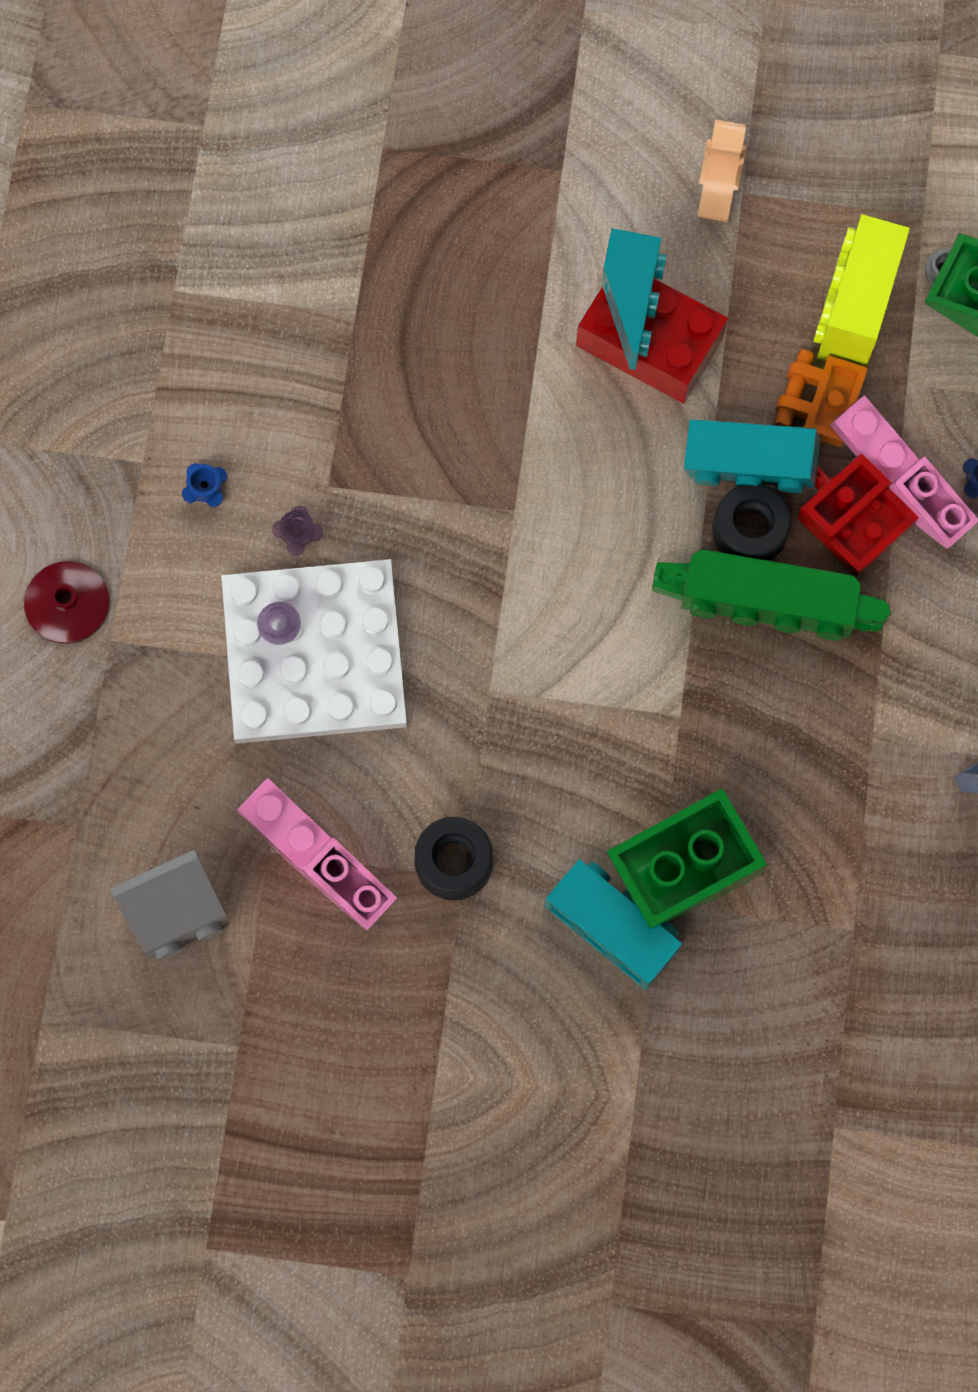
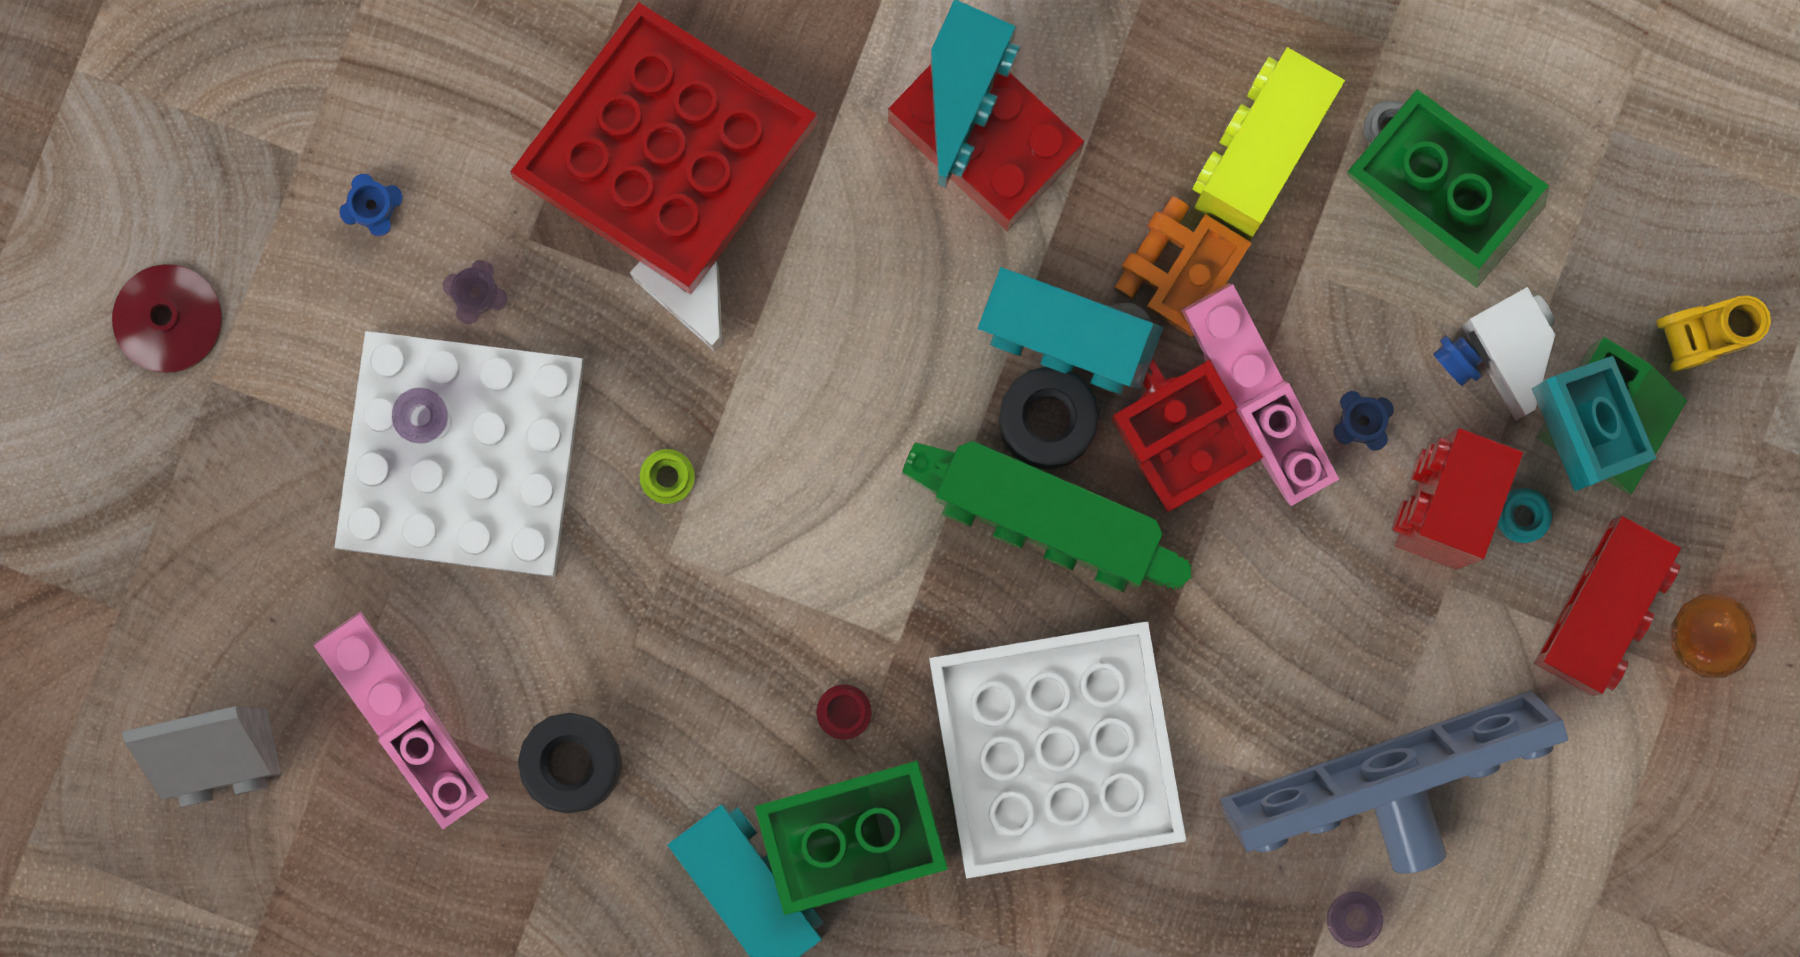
camera: 15 degrees right, 10 degrees up
(417, 392) = (664, 147): none -> red plate
(465, 505) = (697, 311): none -> white slope
(471, 620) = (654, 464): none -> lime plate
(653, 775) = (844, 712): none -> dark red plate
(822, 766) = (1057, 750): none -> white plate

